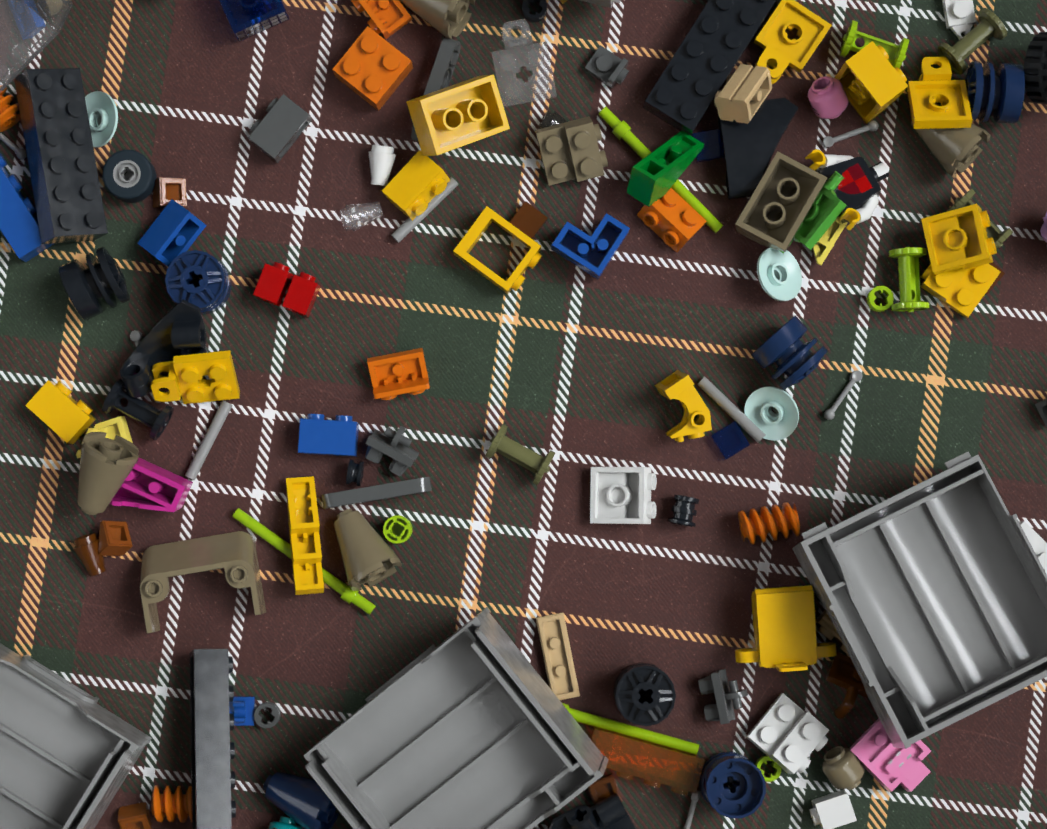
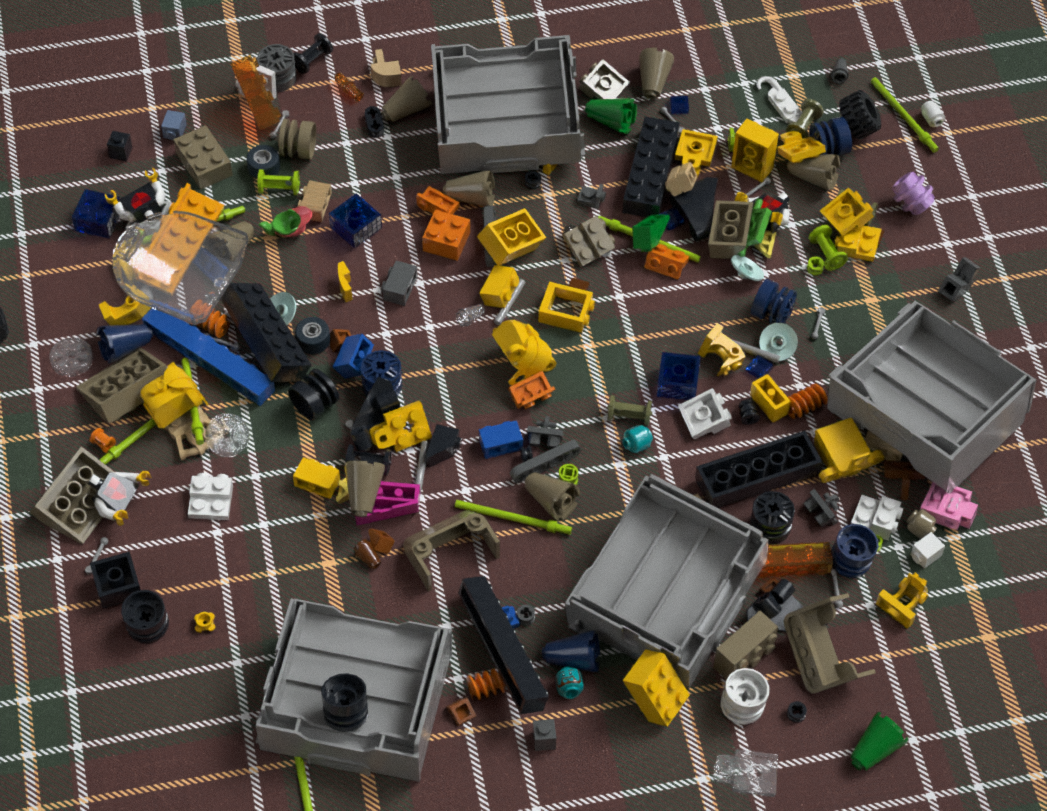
camera: 20 degrees left, 30 degrees down
(201, 92) = (344, 278): none -> yellow slope
(247, 418) = (442, 445): none -> black slope
(274, 283) = (430, 364): red piece -> none
(304, 535) = (507, 498): yellow slope -> none
(381, 163) = (471, 281): white cone -> none
(405, 310) = (523, 349): none -> yellow piece
(513, 502) = (637, 439): none -> teal head
(522, 53) = (534, 201): clear plate -> none
(591, 252) = (623, 288): blue brick -> none
(608, 424) = (678, 376): none -> clear blue brick
(656, 613) = (758, 470): none -> black brick
(720, 504) = (770, 398): none -> yellow brick
(827, 97) = (733, 171): bright pink head -> none

